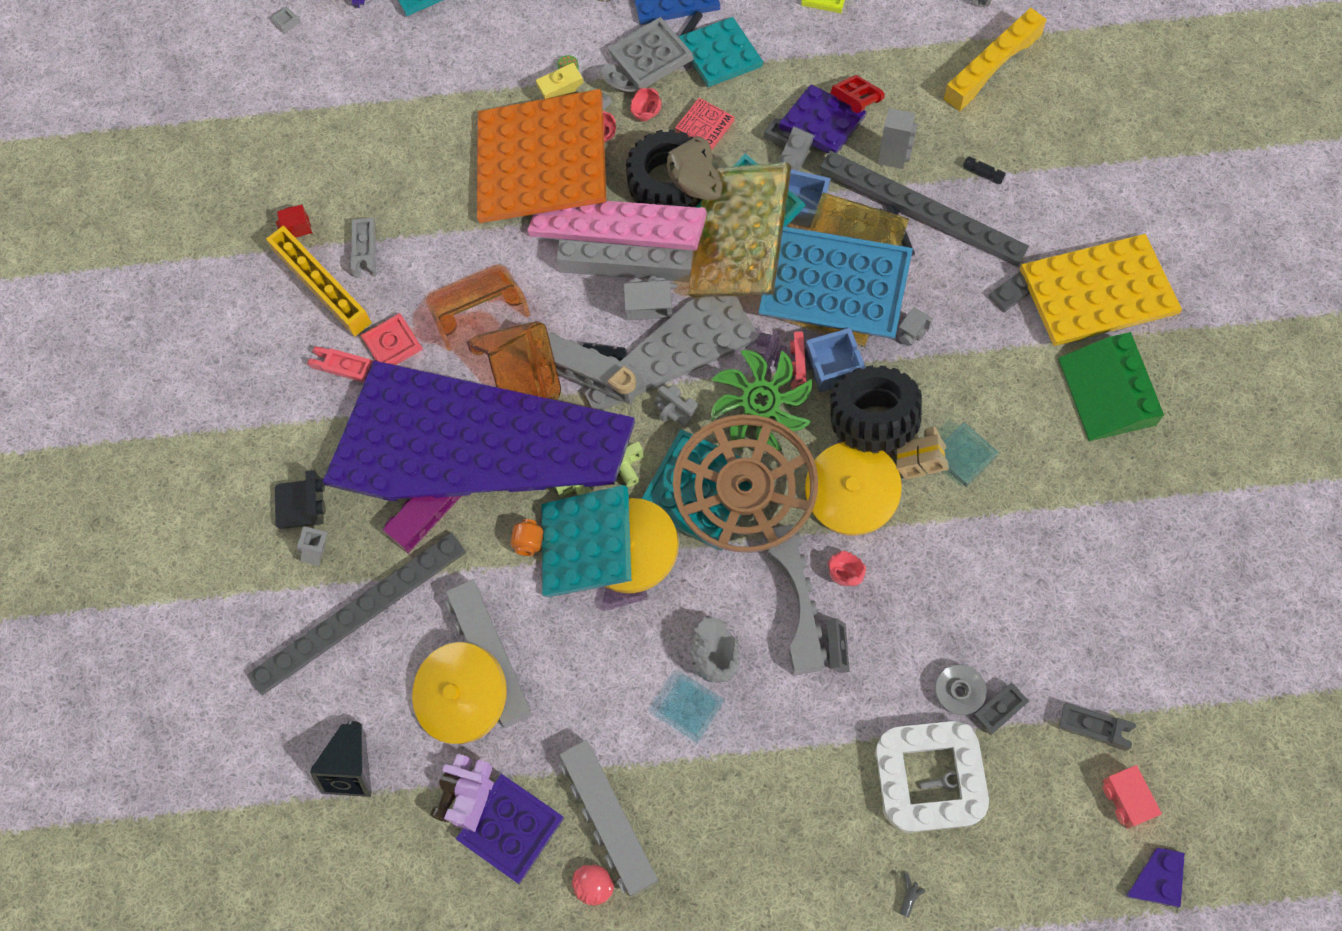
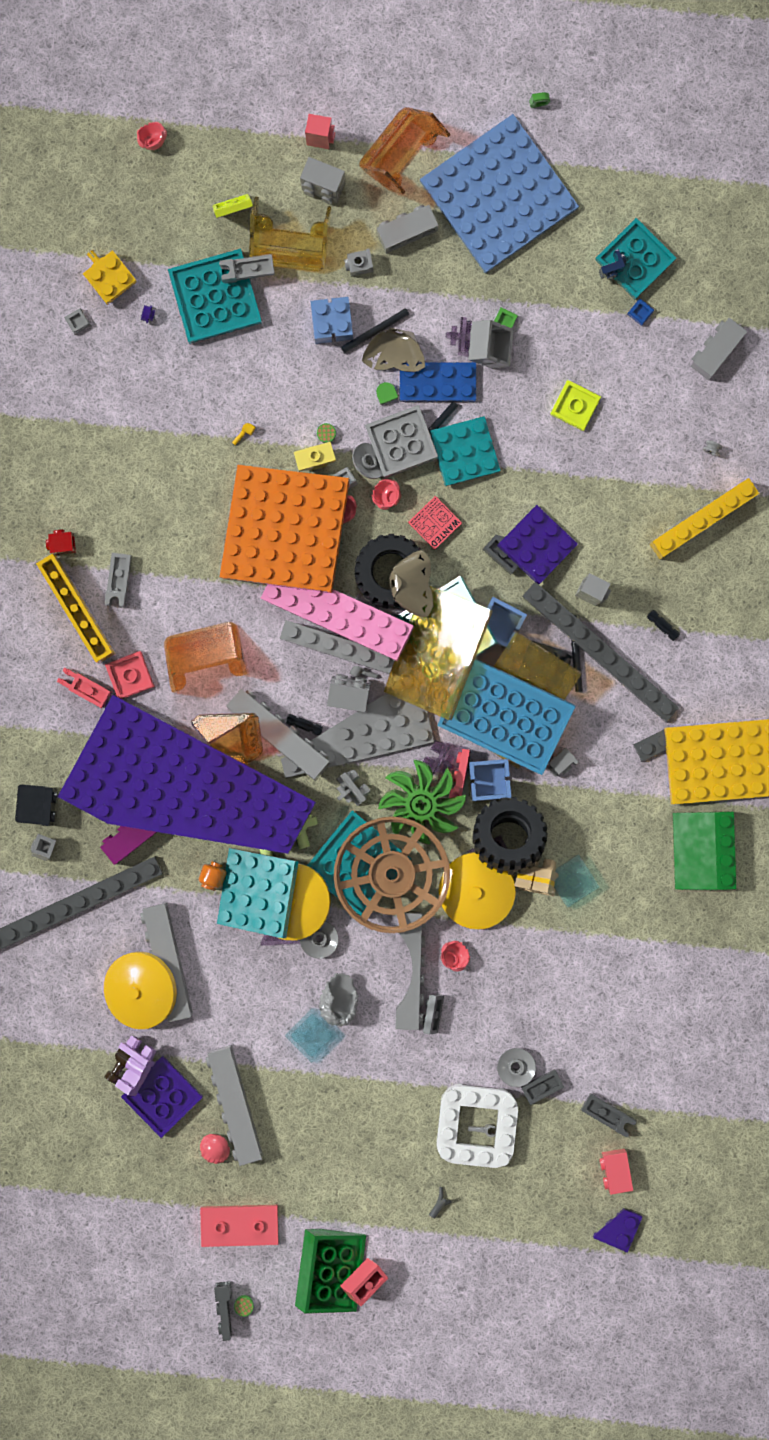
camera: 15 degrees right, 20 degrees up
(344, 763) = (47, 1022): black slope -> none
(481, 77) = (247, 428): none -> yellow hand
(623, 381) = (313, 769): tan tile -> none
(624, 18) = (386, 393): none -> bright green tile
(687, 585) = (324, 948): none -> light grey dish
(796, 148) = (505, 574): light grey plate -> none
(855, 87) = (571, 521): red plate -> none

